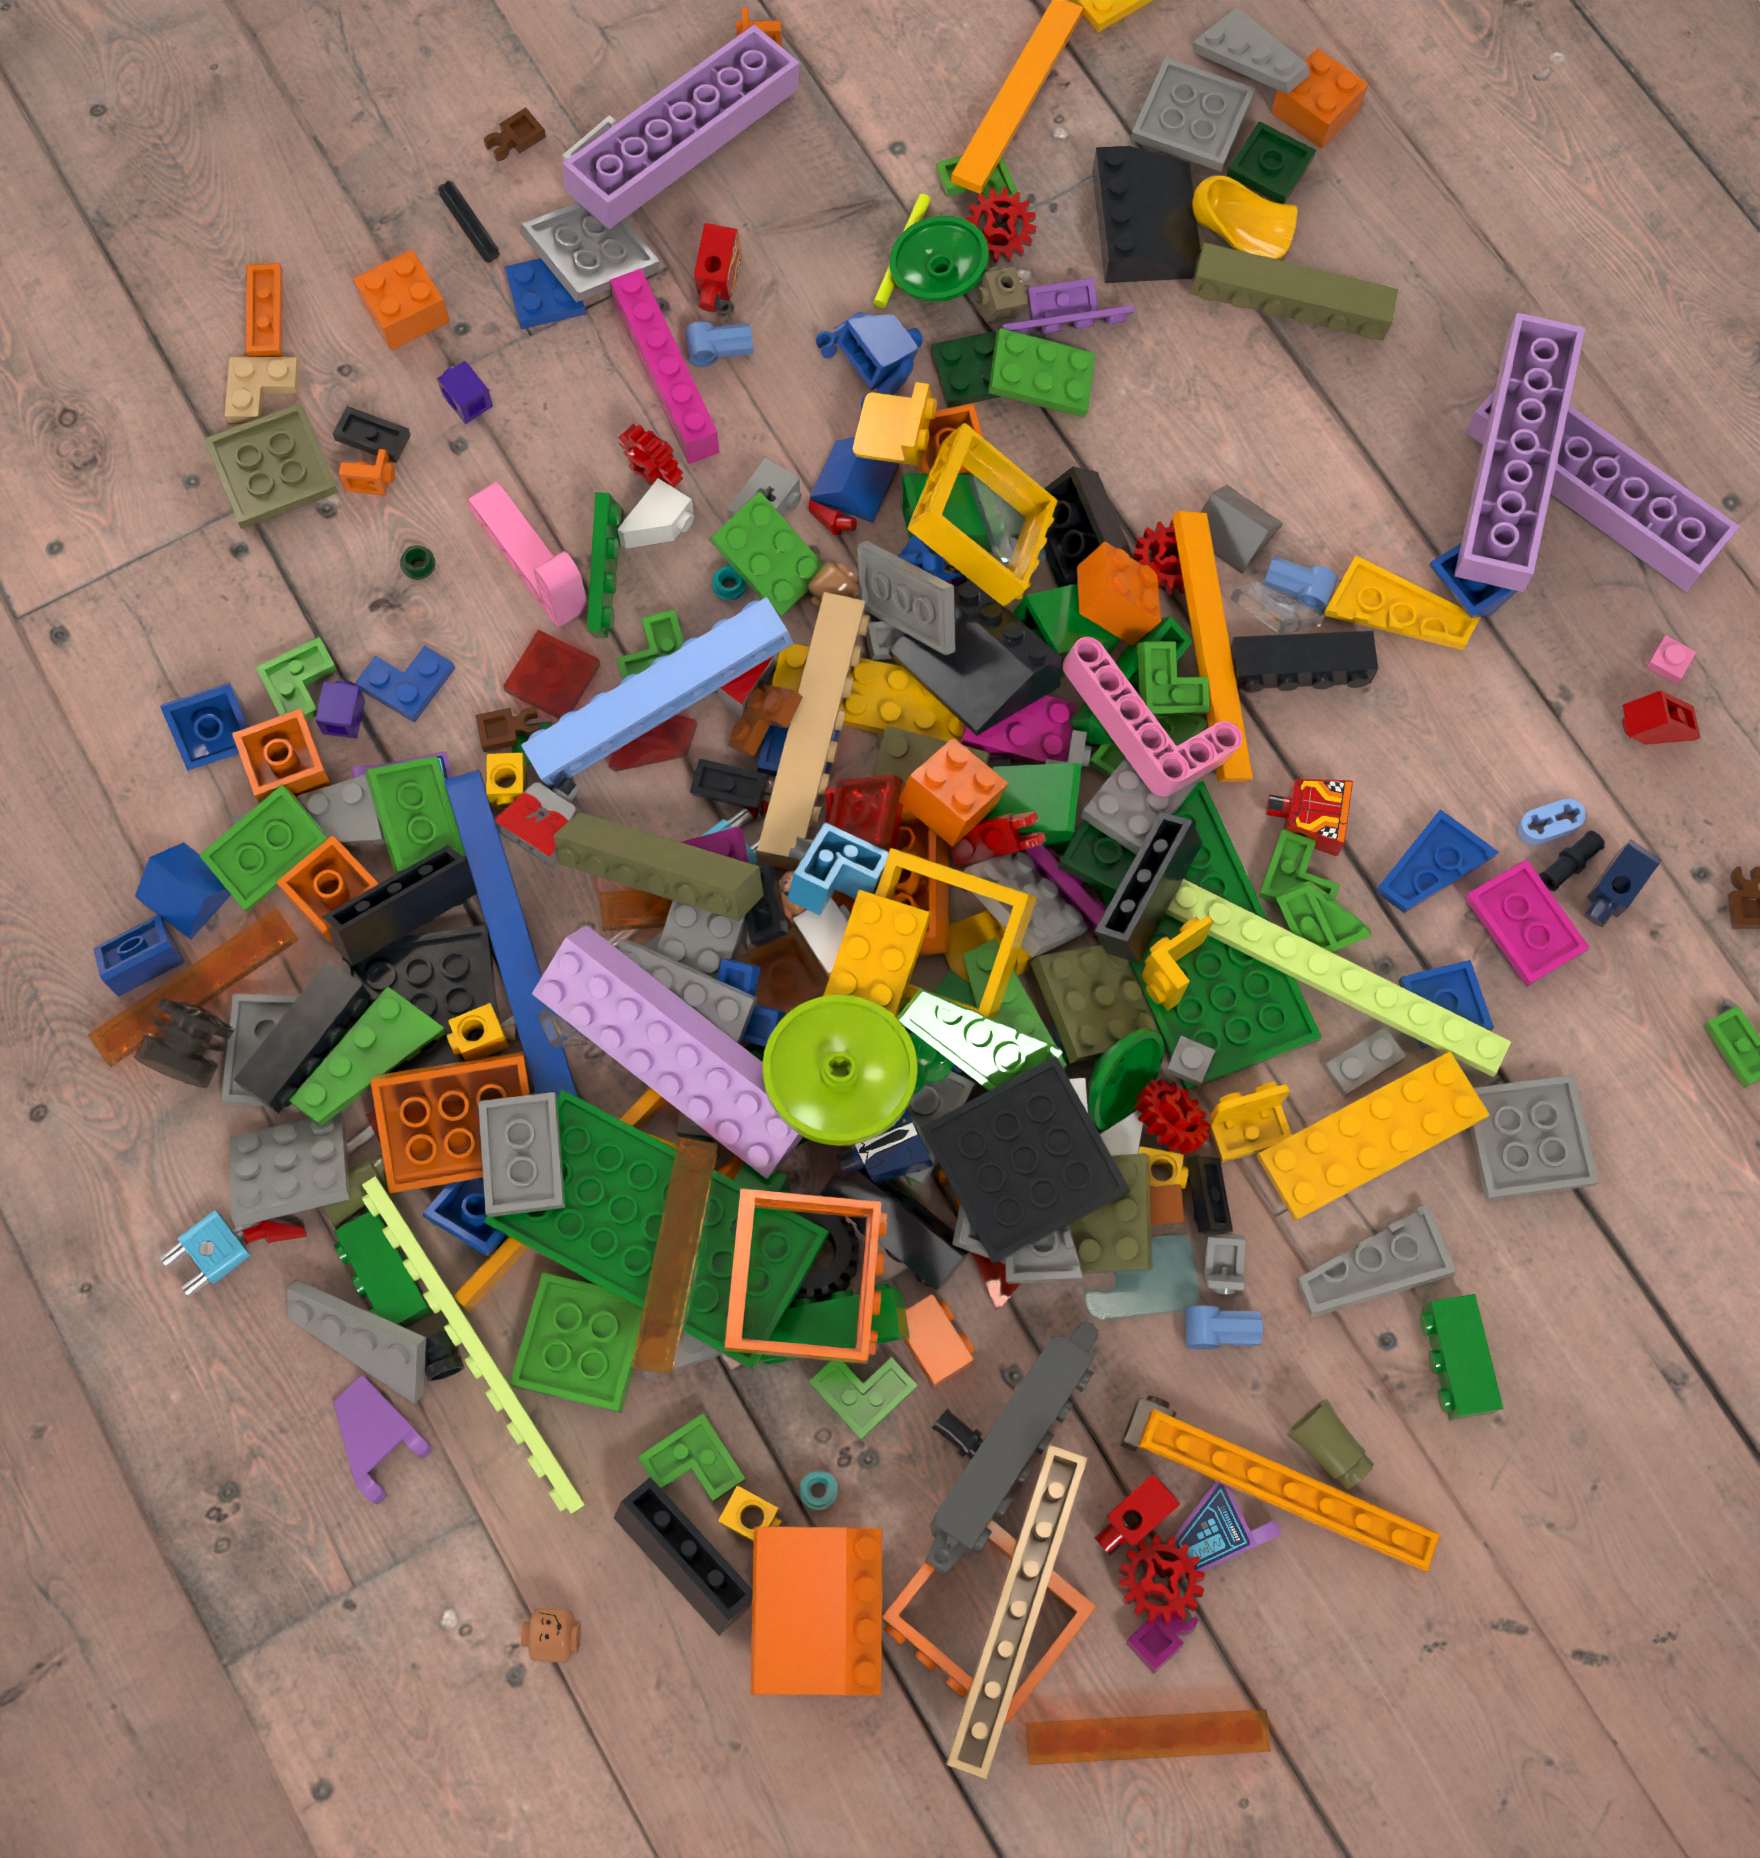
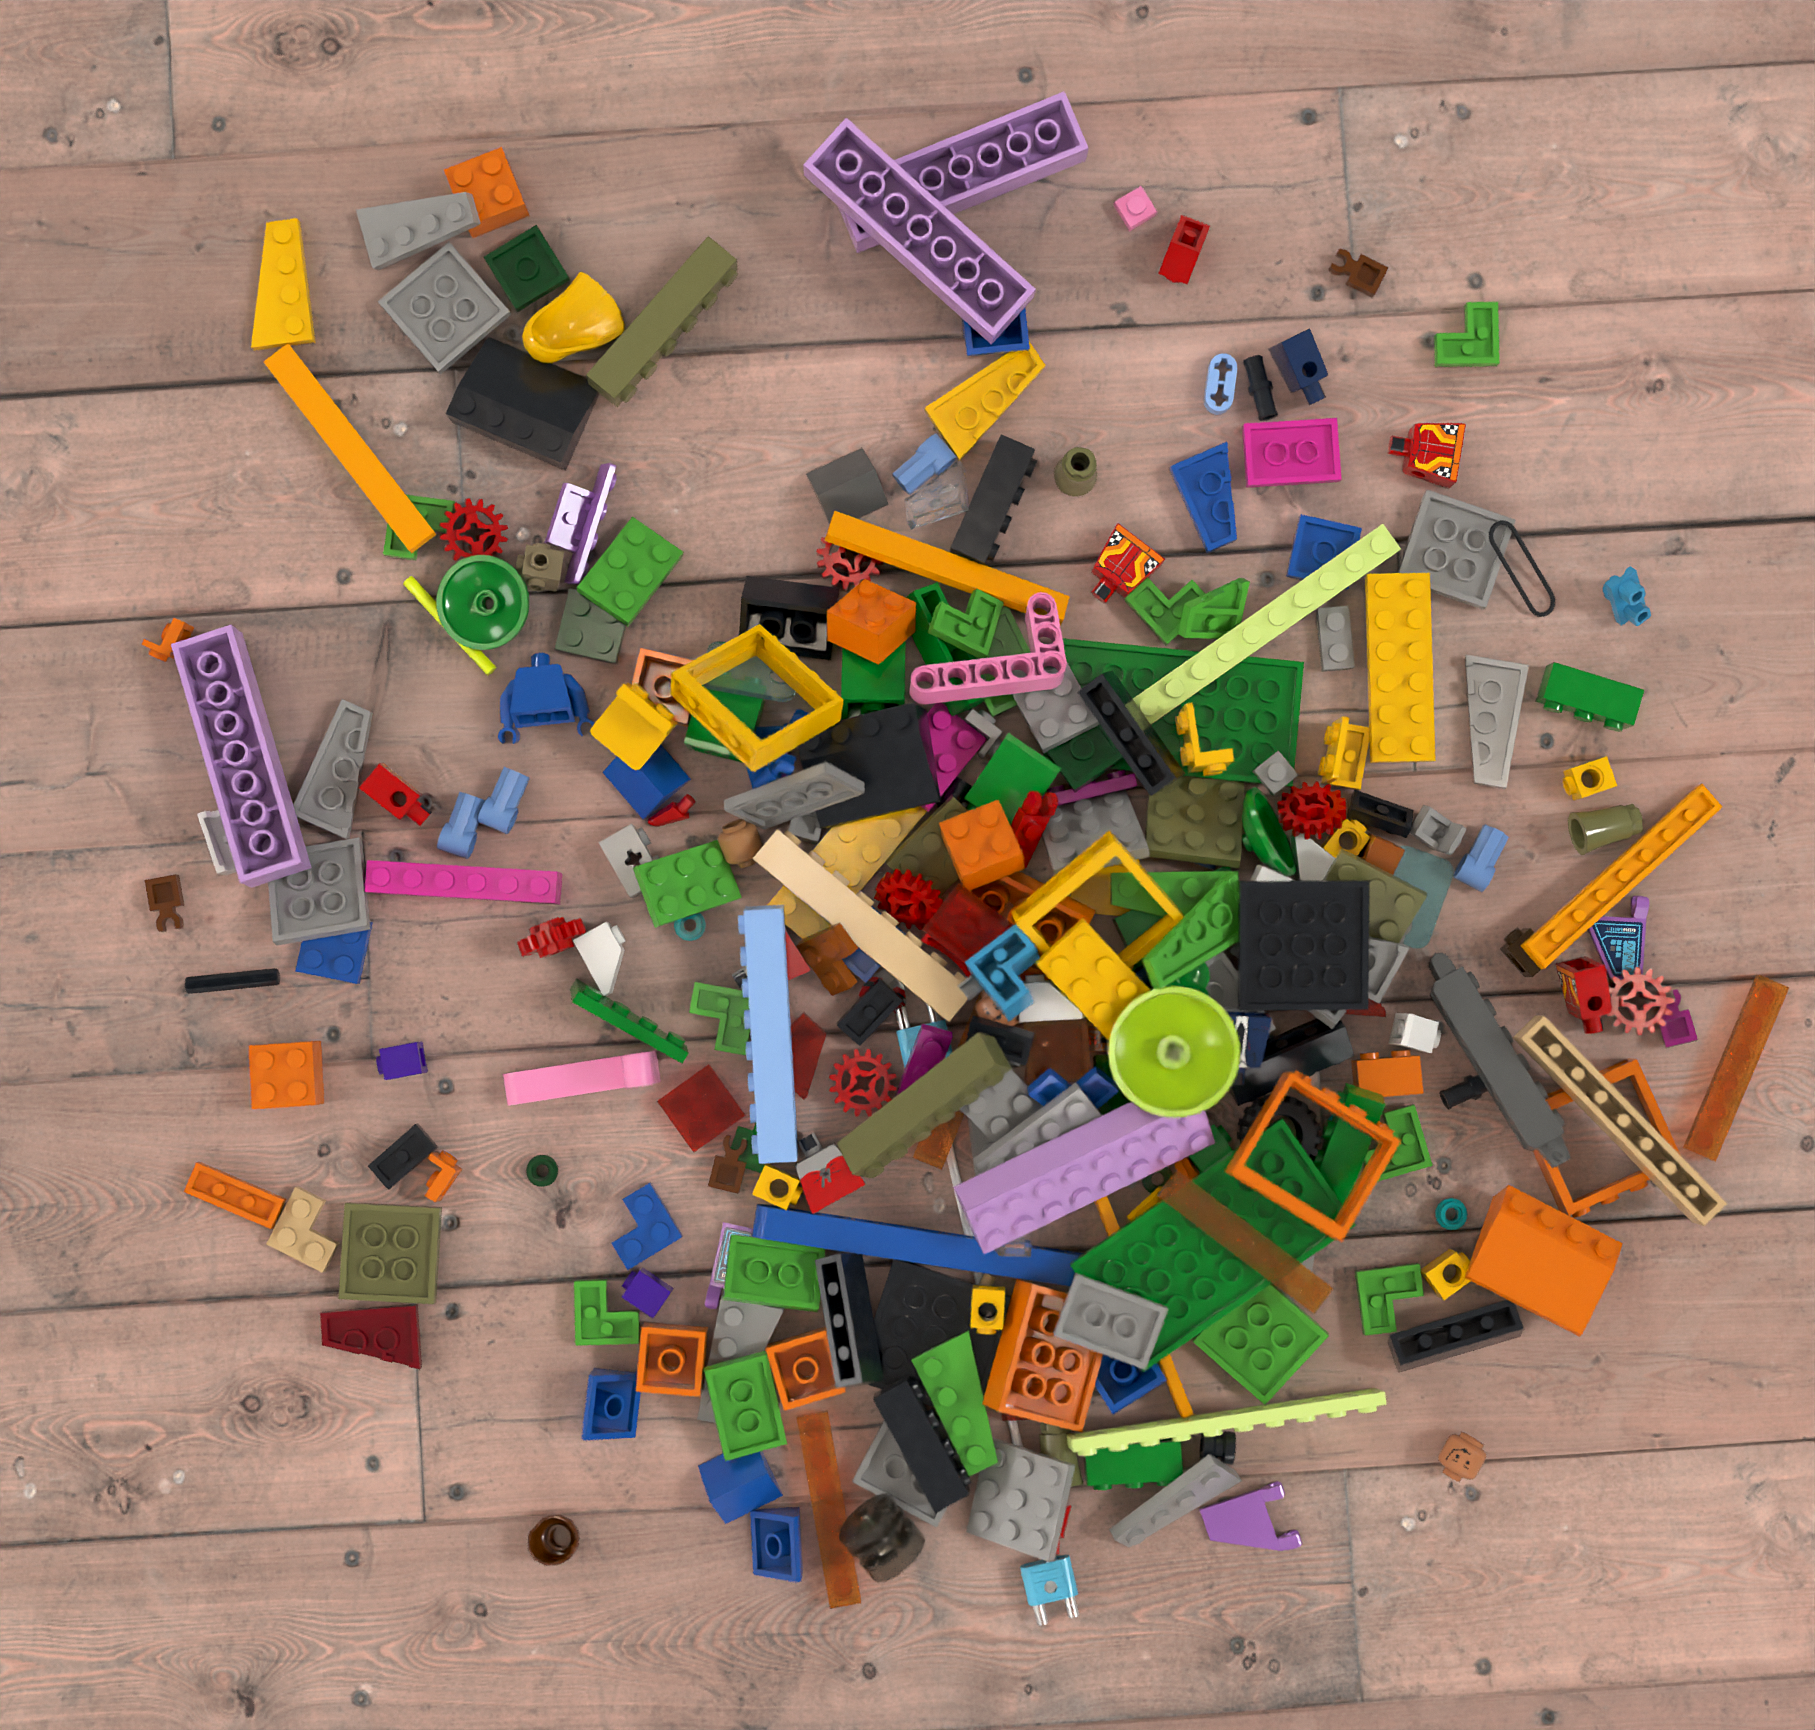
camera: 65 degrees left, 15 degrees up
(46, 736) = (553, 1540): none -> reddish brown hair
(186, 488) = (378, 1332): none -> dark red wing
(653, 796) = (854, 1070): none -> red gear
(681, 216) = (335, 775): none -> light grey wing
(752, 366) = (501, 808): none -> medium blue piece
(863, 753) = (908, 898): none -> red gear
(995, 1345) = (1415, 1033): none -> white slope
(1380, 724) = (1076, 482): none -> olive plant
(1389, 1401) = (1600, 772): none -> yellow brick
(1538, 1209) = (1511, 574): none -> black piece
(1590, 1341) = (1627, 598): none -> dark azure hips
(1615, 1060) = (1431, 451): none -> torso

